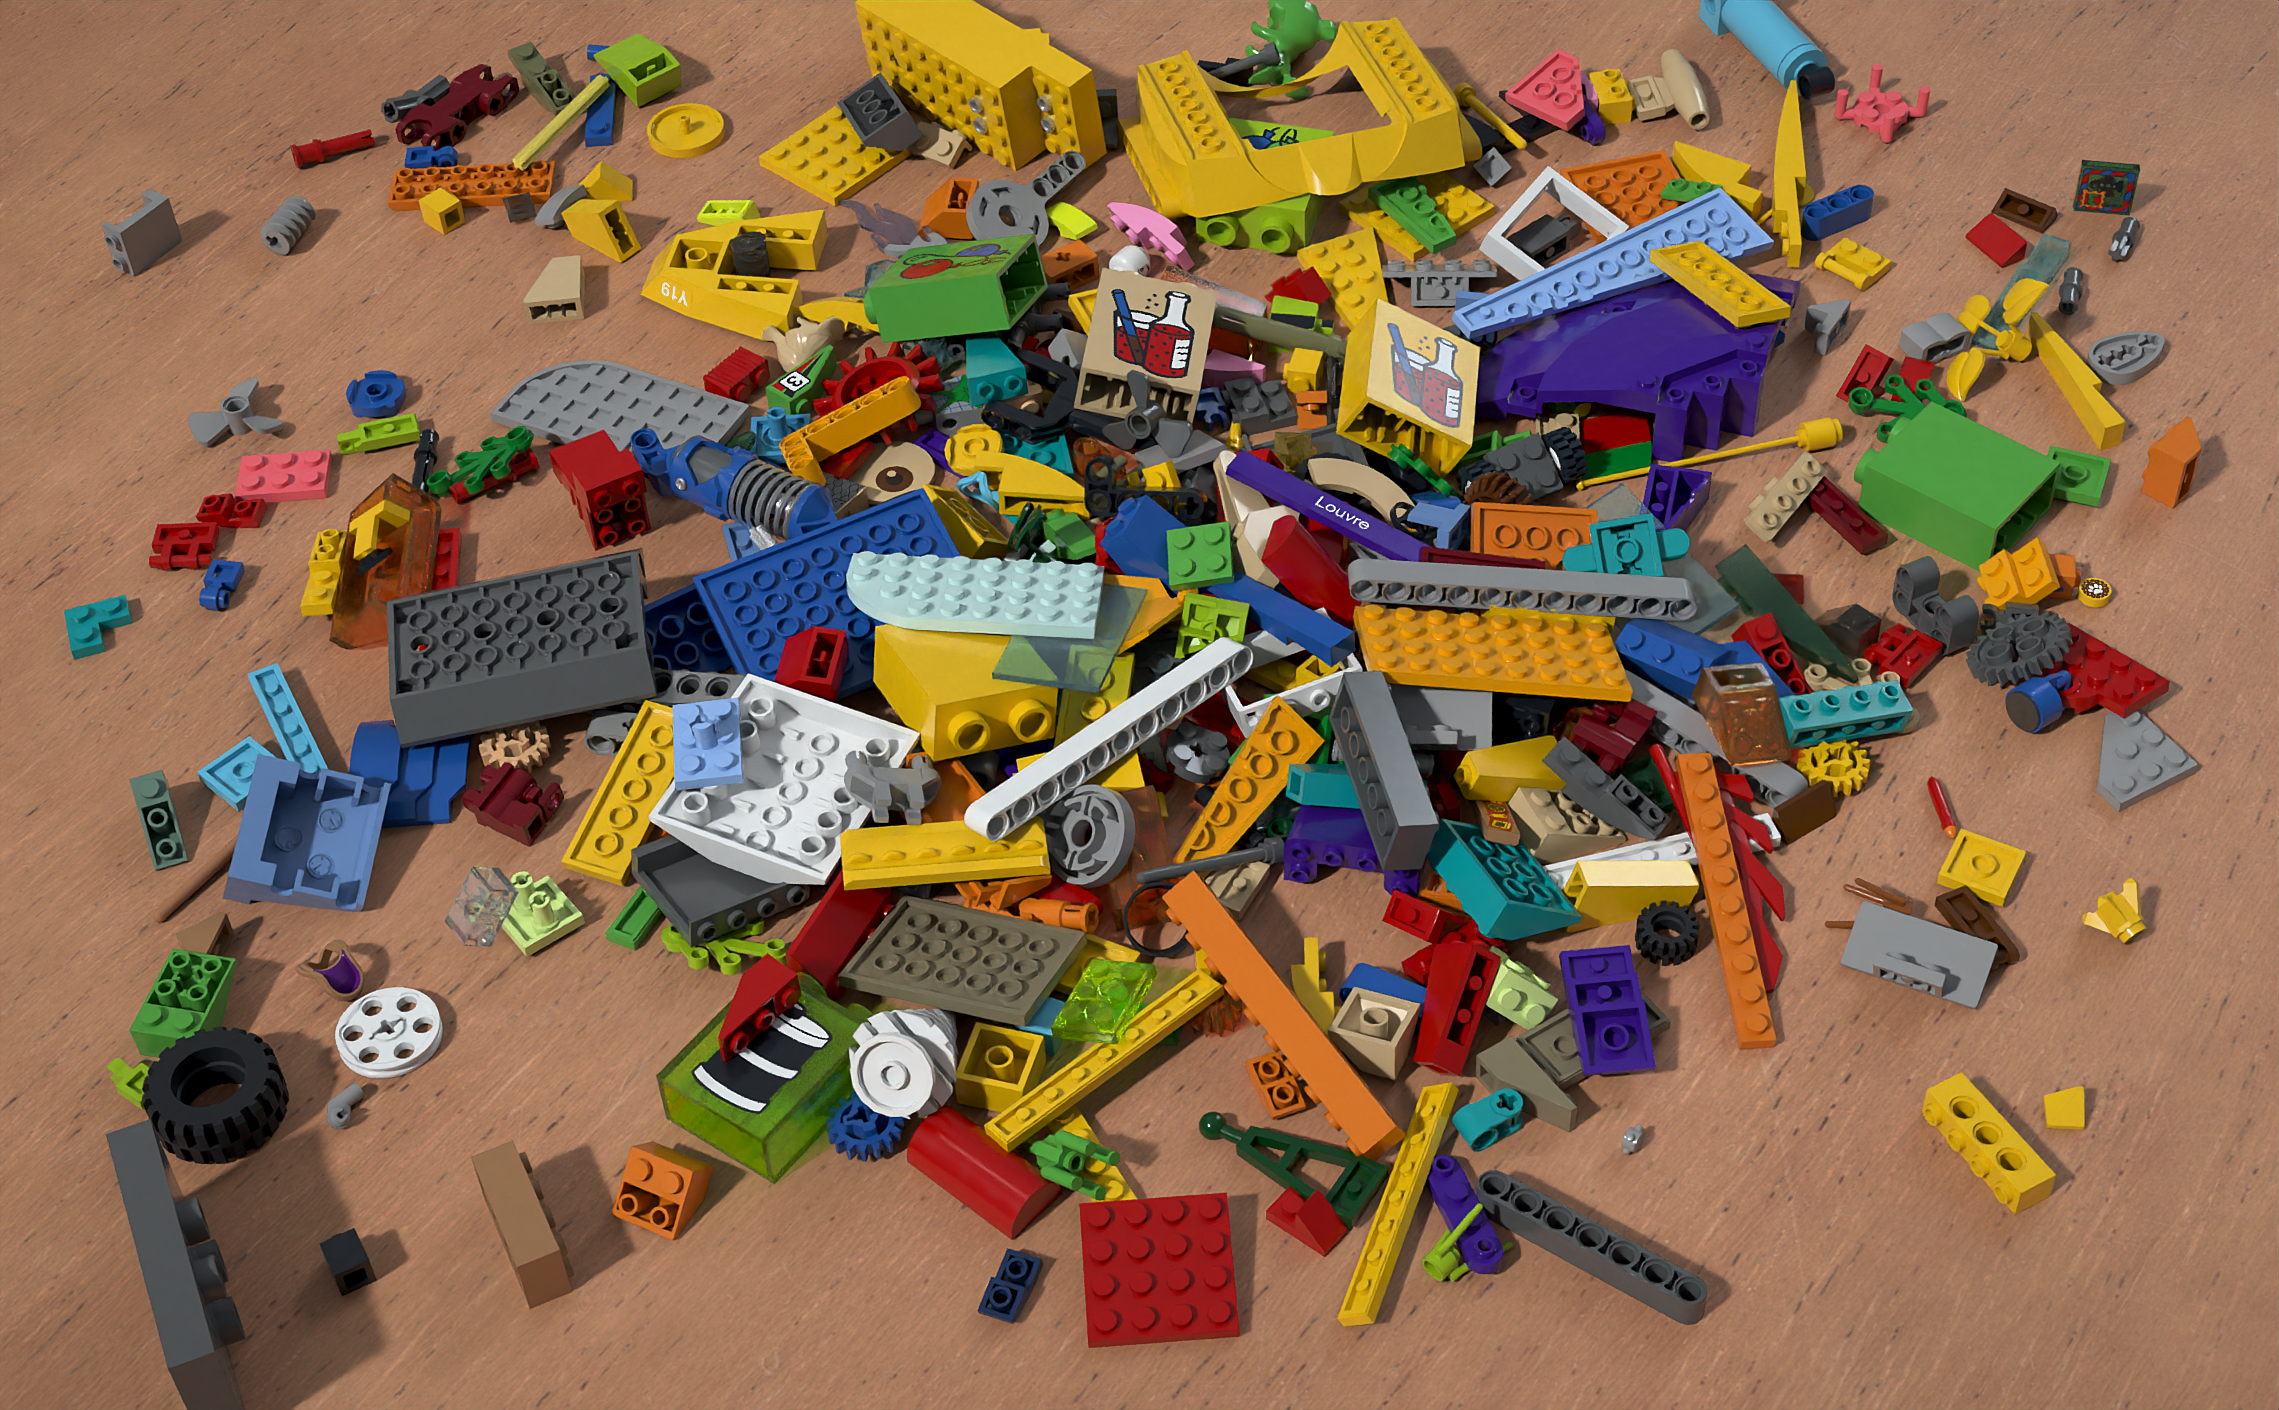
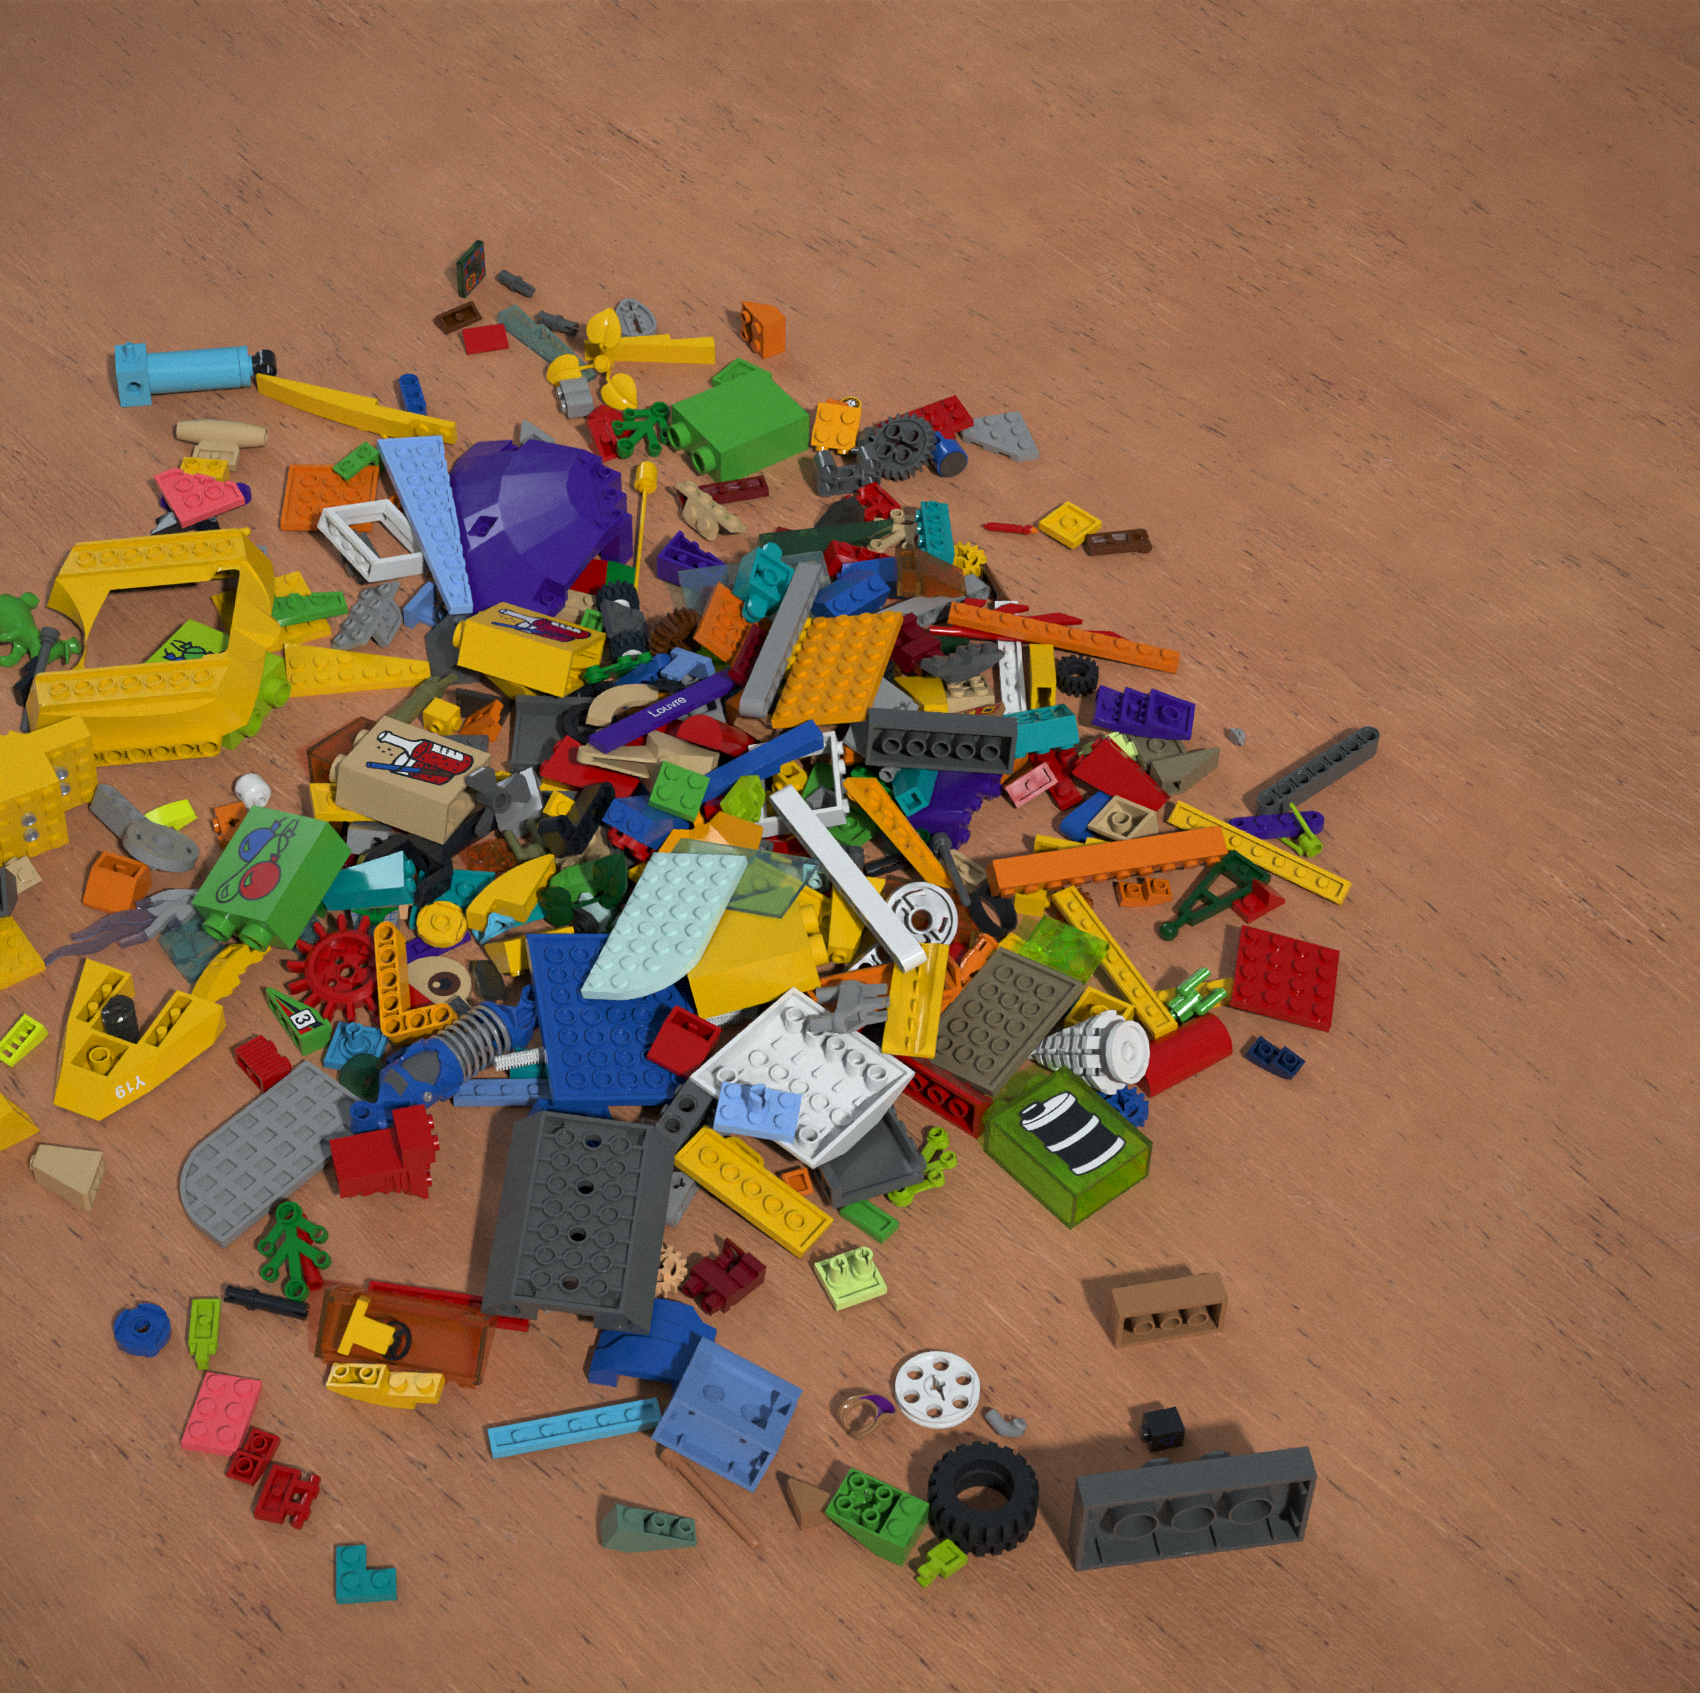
camera: 80 degrees left, 0 degrees up
(218, 581) = (349, 1466): blue plate -> none
(233, 771) = (615, 1465): medium azure plate -> none
(234, 416) = (93, 1434): light grey piece -> none
(481, 906) = (837, 1289): clear brick -> none
(661, 1189) = (1146, 1232): orange slope -> none
(759, 999) = (1034, 1121): red slope -> none
(804, 341) = (252, 1013): tan piece -> none
(1150, 230) = (212, 768): bright pink slope -> none
(1292, 449) = (543, 739): clear yellow brick -> none
(1299, 314) = (380, 703): lime torso -> none
(1300, 285) = (345, 700): red slope -> none
(1487, 1121) = (1207, 792): teal piece -> none
(1720, 284) = (502, 463): yellow plate -> none
(1734, 176) = (336, 445): yellow slope -> none
(1854, 263) = (469, 411): yellow plate -> none
(1871, 104) = (312, 344): coral plate -> none
(1881, 896) = (1092, 572): dark orange plant -> none
(1919, 955) = (1135, 570): light grey bracket -> none
(1988, 1143) = (1285, 586): yellow brick -> none
(2065, 1109) = (1265, 550): yellow slope -> none
(2119, 913) = (1131, 478): yellow rock -> none

